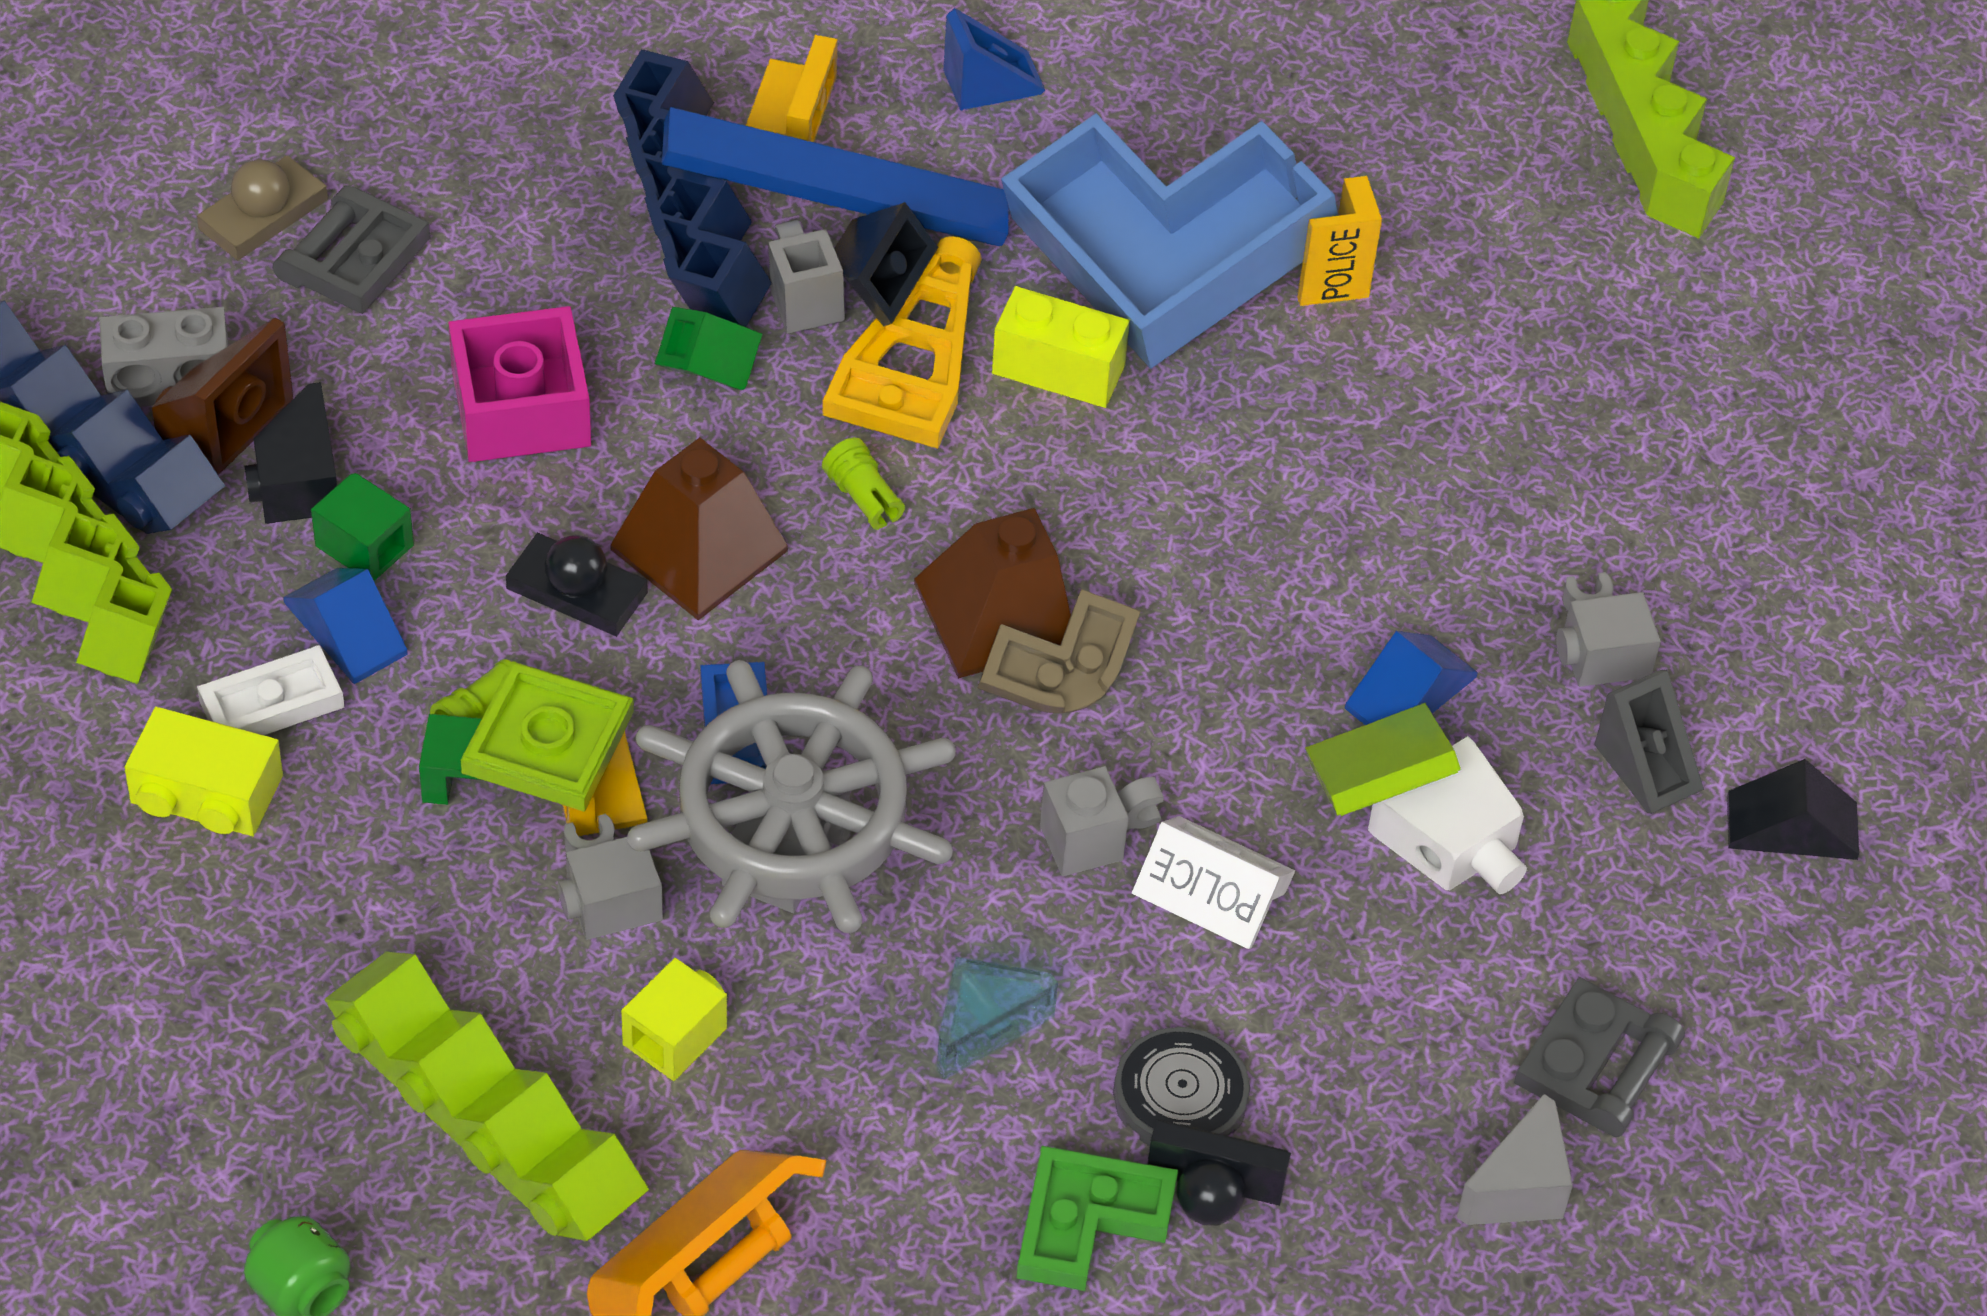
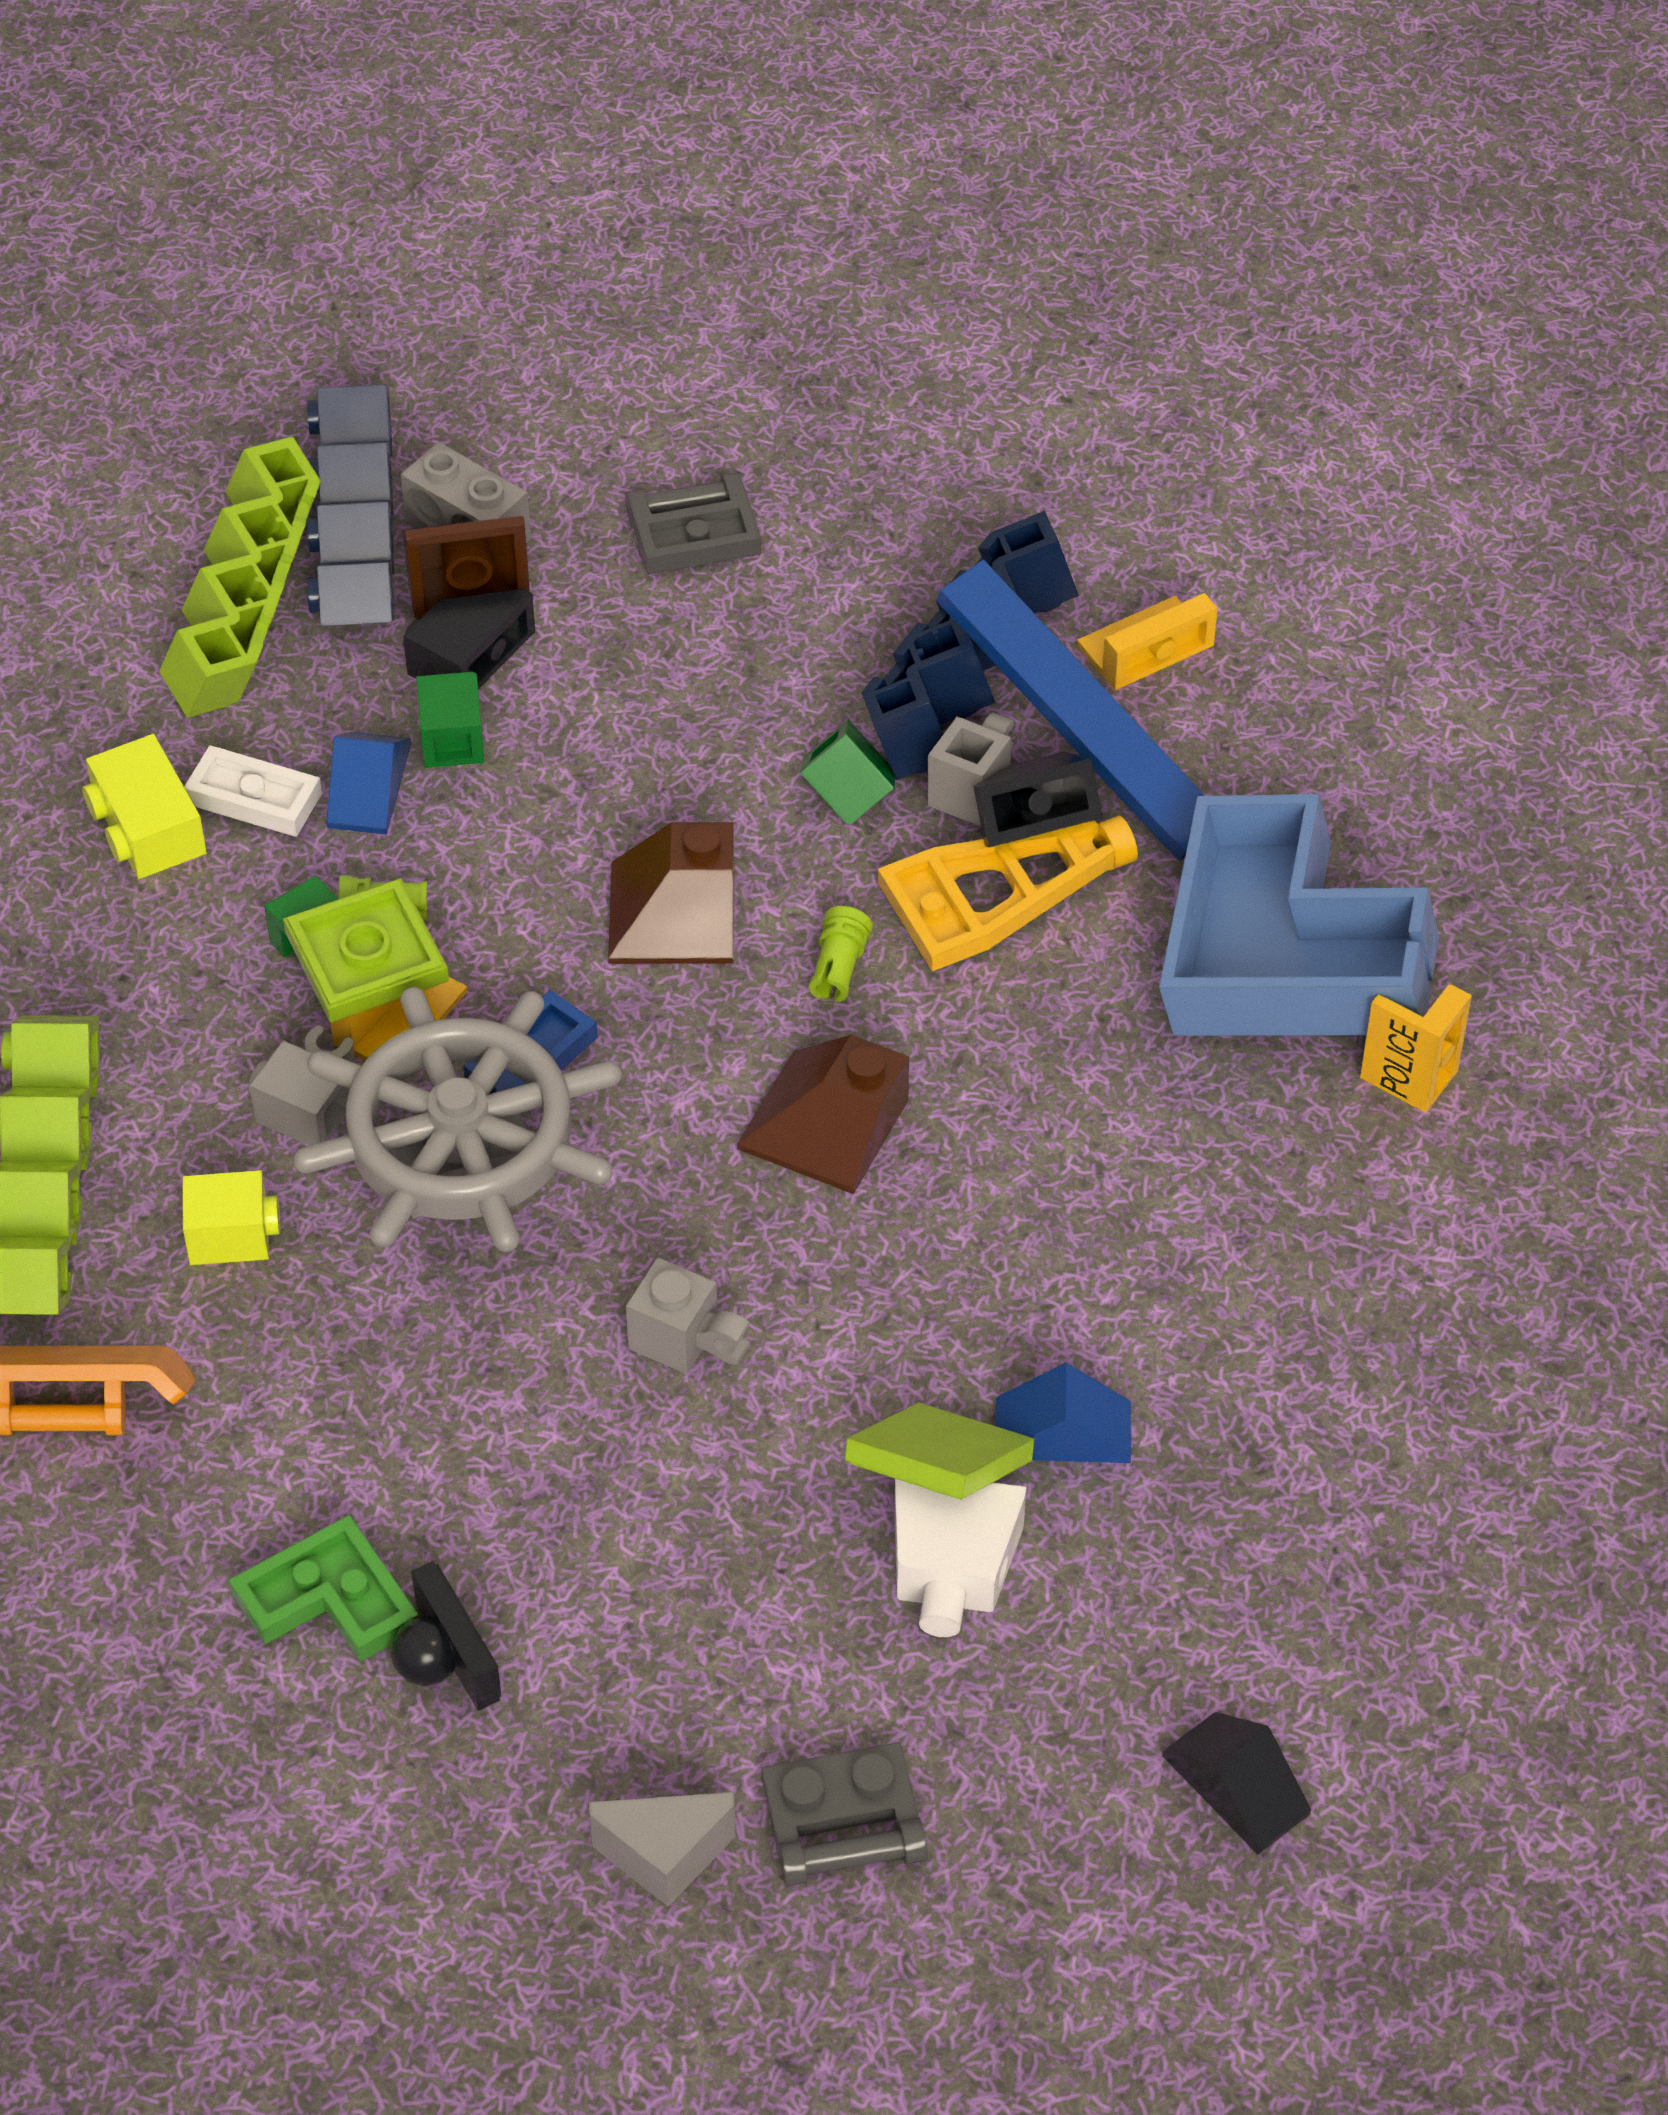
camera: 50 degrees right, 0 degrees up
(261, 204) = (672, 447): dark tan tile -> none
(520, 384) = (671, 695): dark pink brick -> none
(577, 581) = (552, 872): black tile -> none
(985, 65) = (1329, 711): blue slope -> none
(989, 1009) = (431, 1390): clear light blue slope -> none
(1060, 346) = (1105, 961): neon yellow brick -> none
(1067, 674) = (814, 1207): dark tan plate -> none
(1182, 1080) = (510, 1566): tile -> none
(1211, 880) = (724, 1435): white panel -> none
(1606, 634) = (1260, 1509): light grey brick -> none
(1648, 742) = (1182, 1617): dark grey slope -> none

